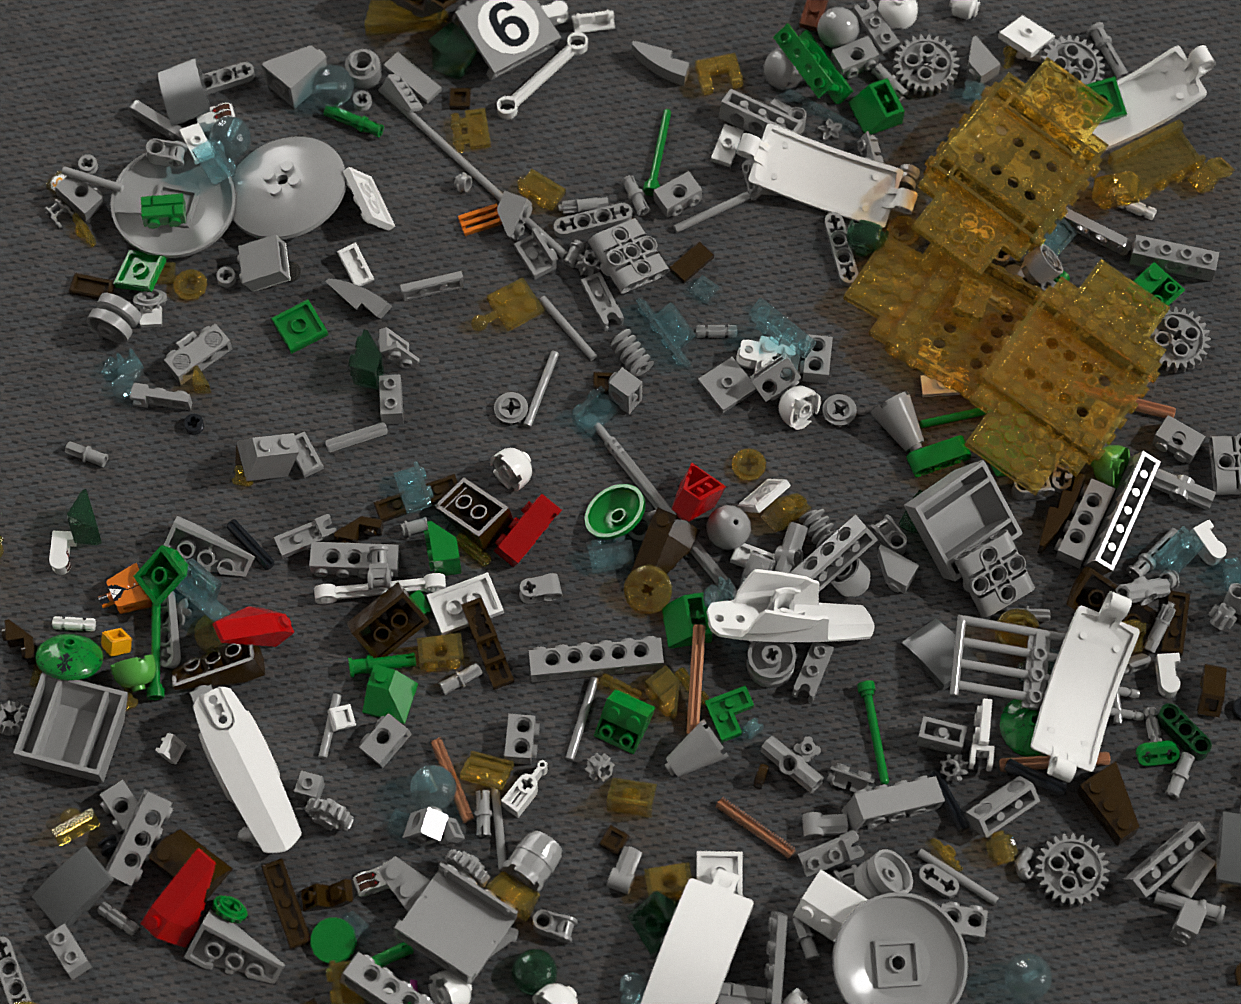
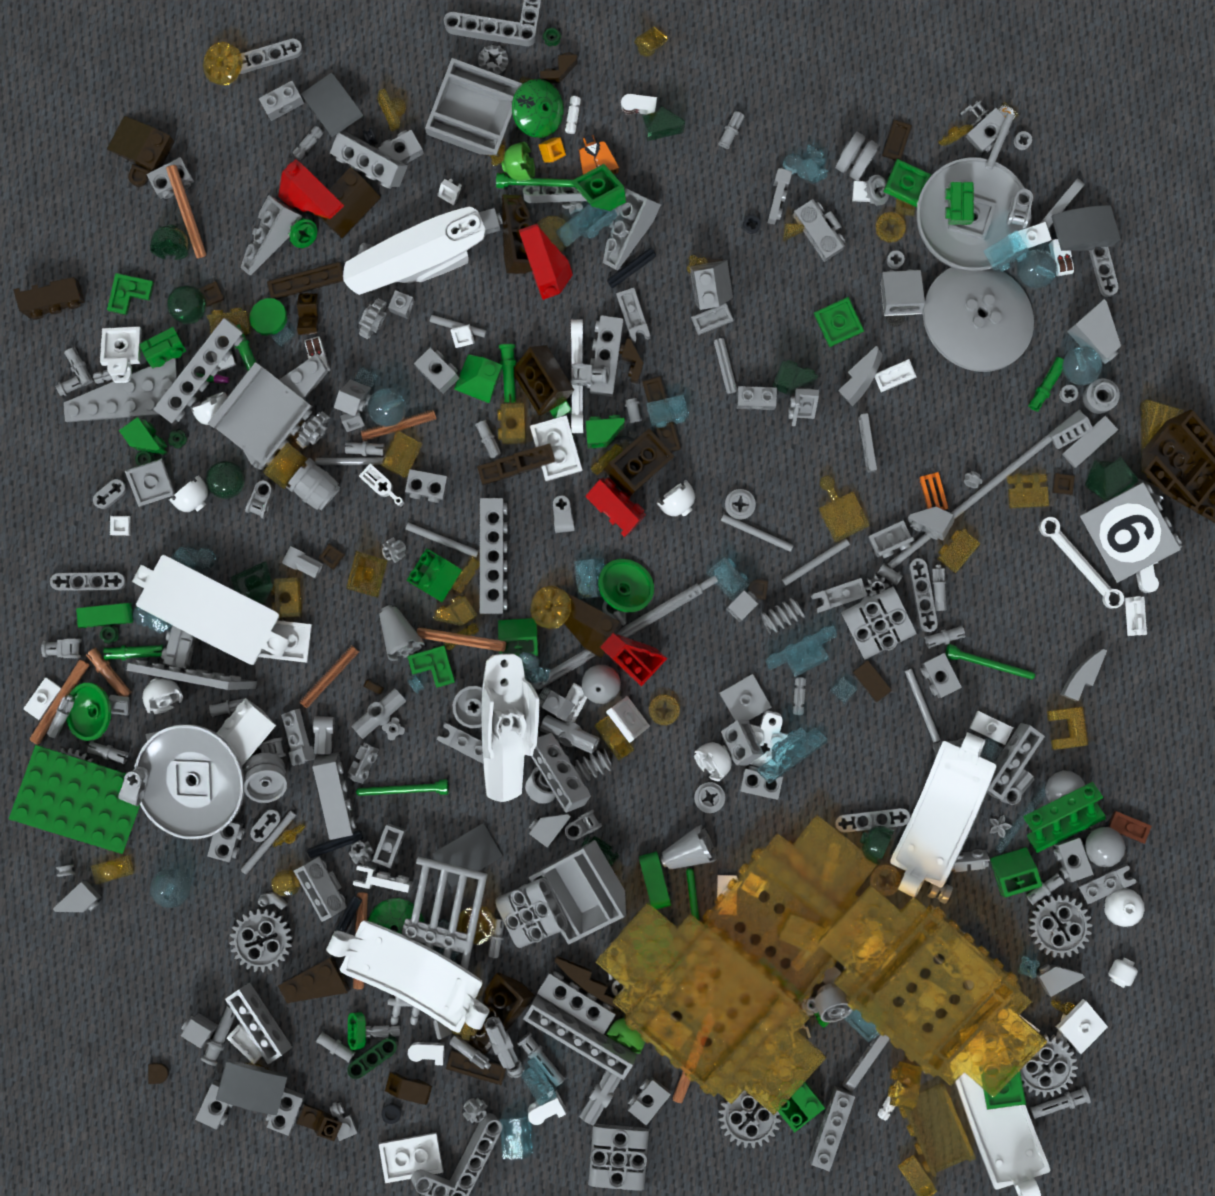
camera: 95 degrees right, 20 degrees up
(368, 199) = (959, 391): white plate -> none

